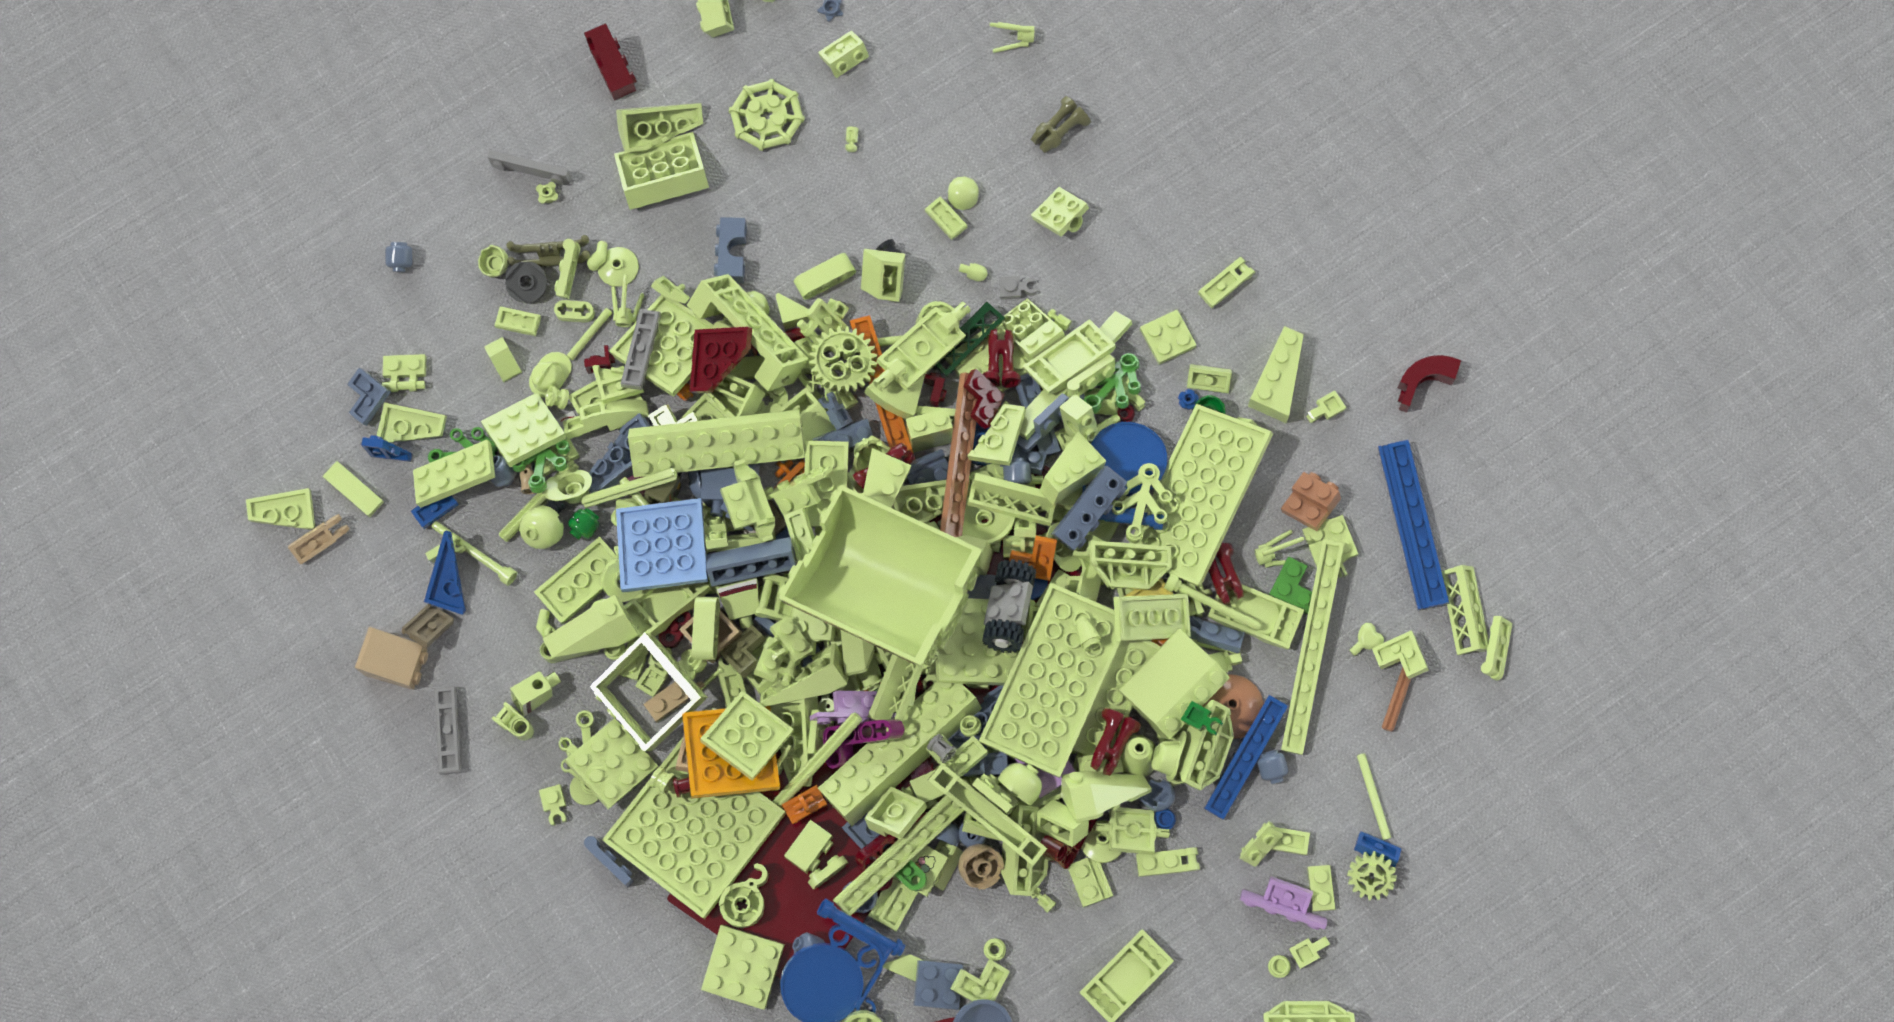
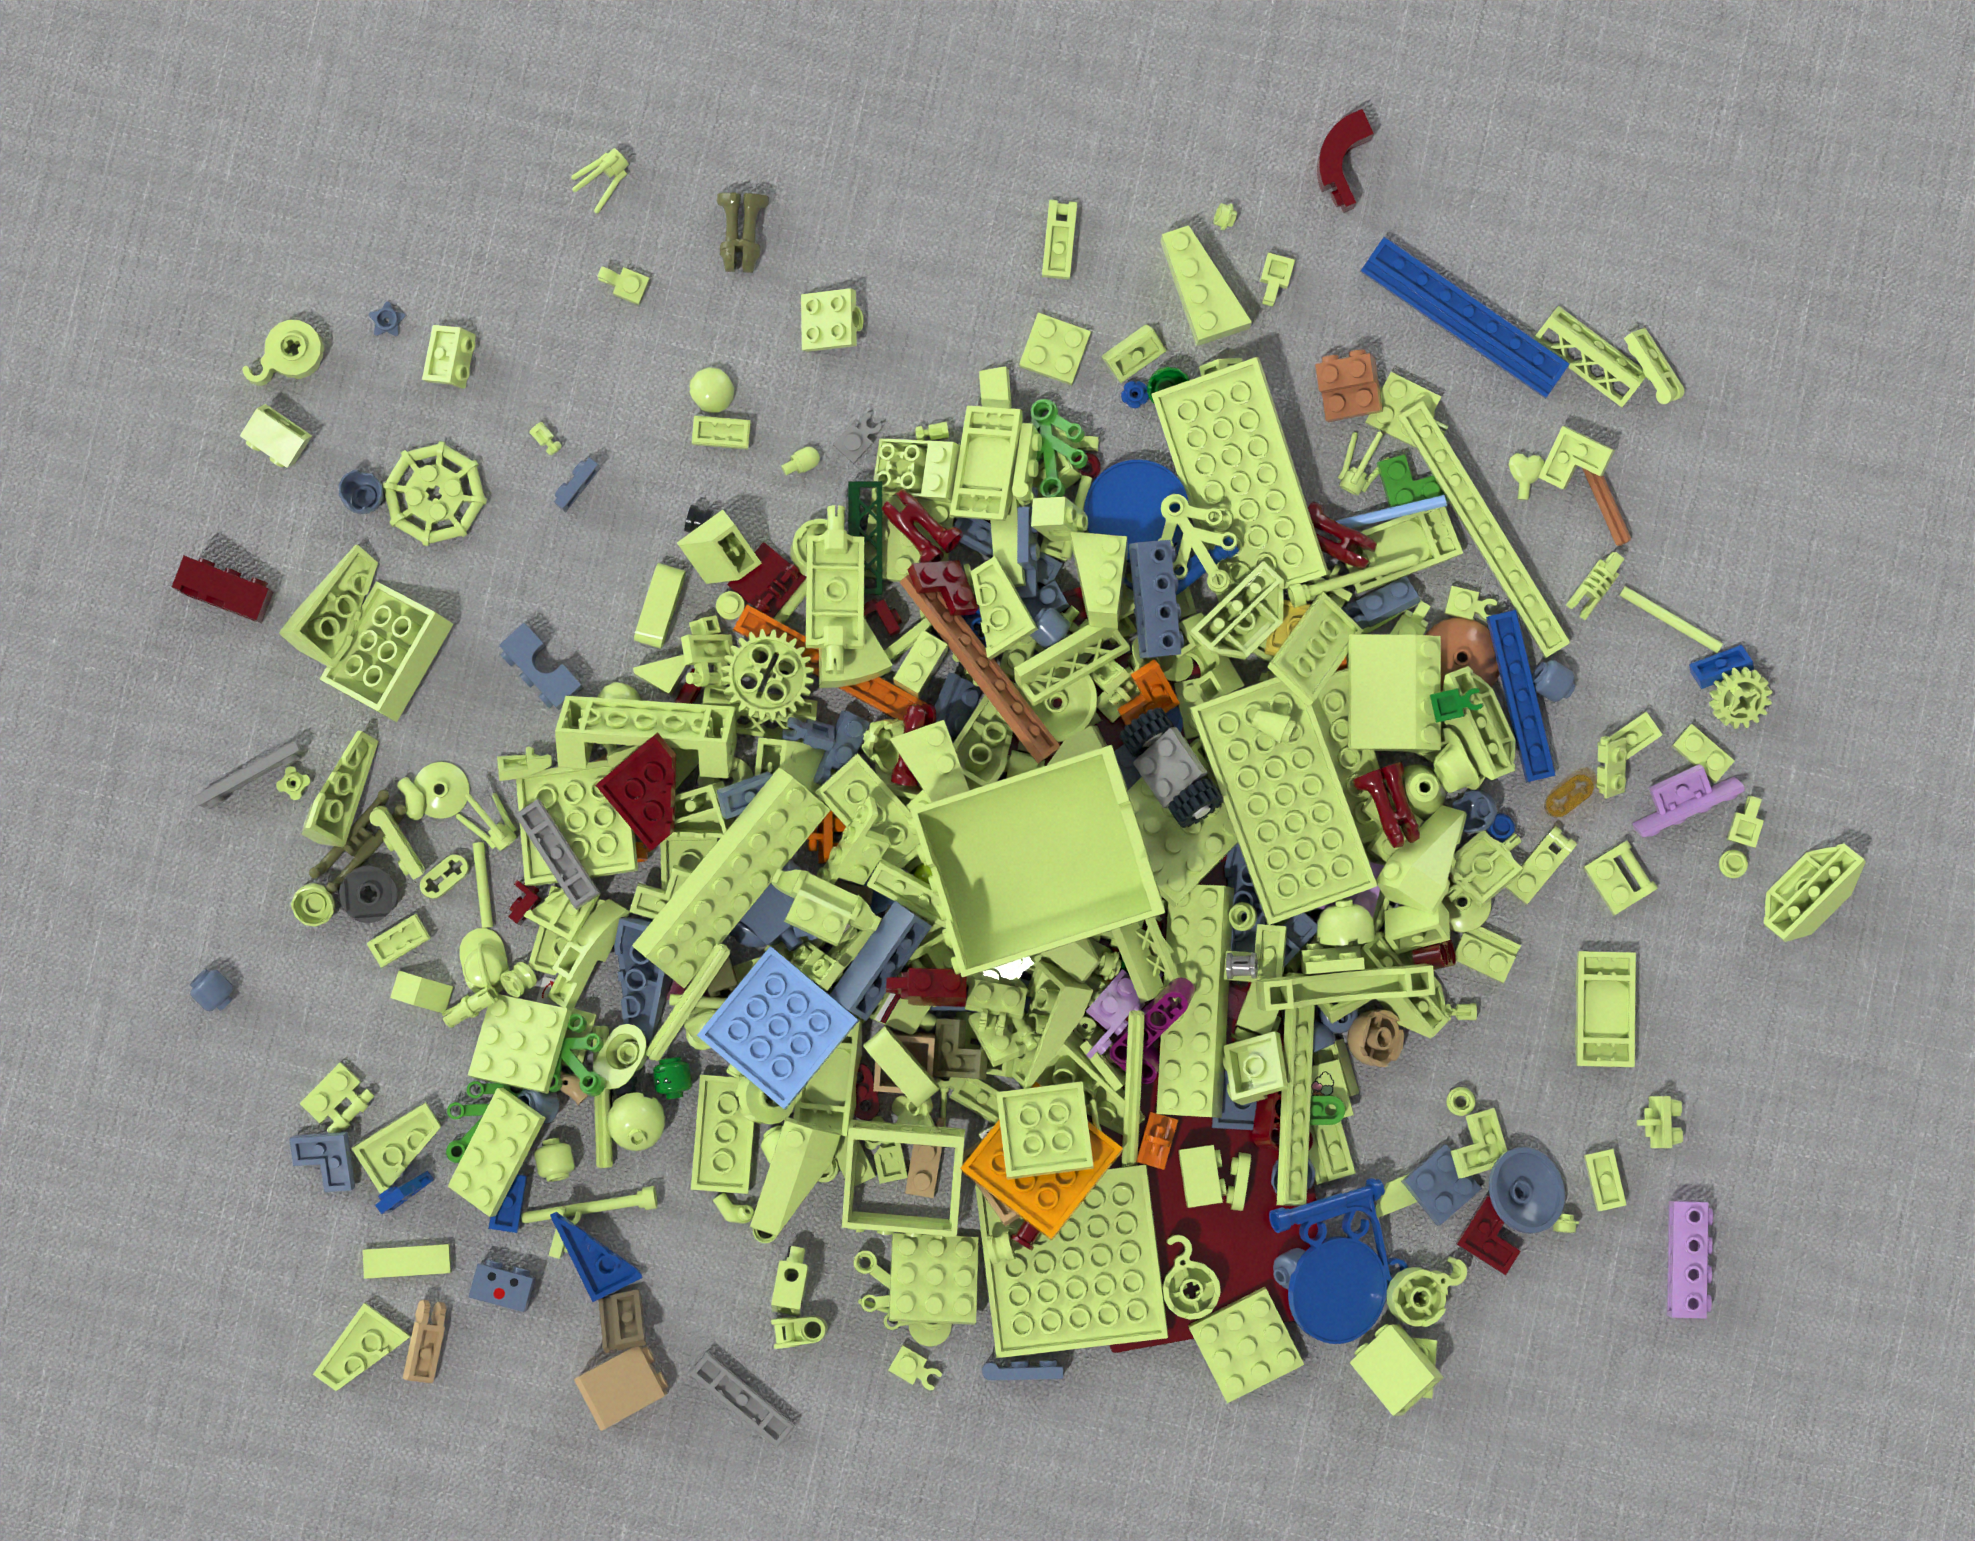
camera: 50 degrees left, 10 degrees up
(386, 548) = (502, 1286): none -> sand blue brick
(479, 508) = (554, 1160): none -> yellowish green head
(518, 387) = (470, 1006): none -> yellowish green pin
(561, 217) = (337, 802): none -> yellowish green wedge
(729, 78) = (360, 492): none -> sand blue hair
(761, 403) = (736, 797): none -> sand blue plate
(762, 598) = (929, 987): none -> dark red hinge
(848, 175) = (583, 474): none -> sand blue plate
(861, 309) = (730, 605): none -> yellowish green plate
(893, 317) = (769, 583): none -> dark red hinge
(972, 101) = (627, 285): none -> yellowish green plate
(1198, 912) = (1612, 883): none -> yellowish green plate
(1219, 844) = (1573, 801): none -> clear yellow beam
(1263, 679) = (1464, 603): none -> yellowish green plate
(1271, 591) = (1394, 512): none -> light blue bar
(1330, 351) = (1225, 216): none -> yellowish green plate
(1349, 736) = (1597, 583): none -> yellowish green hinge

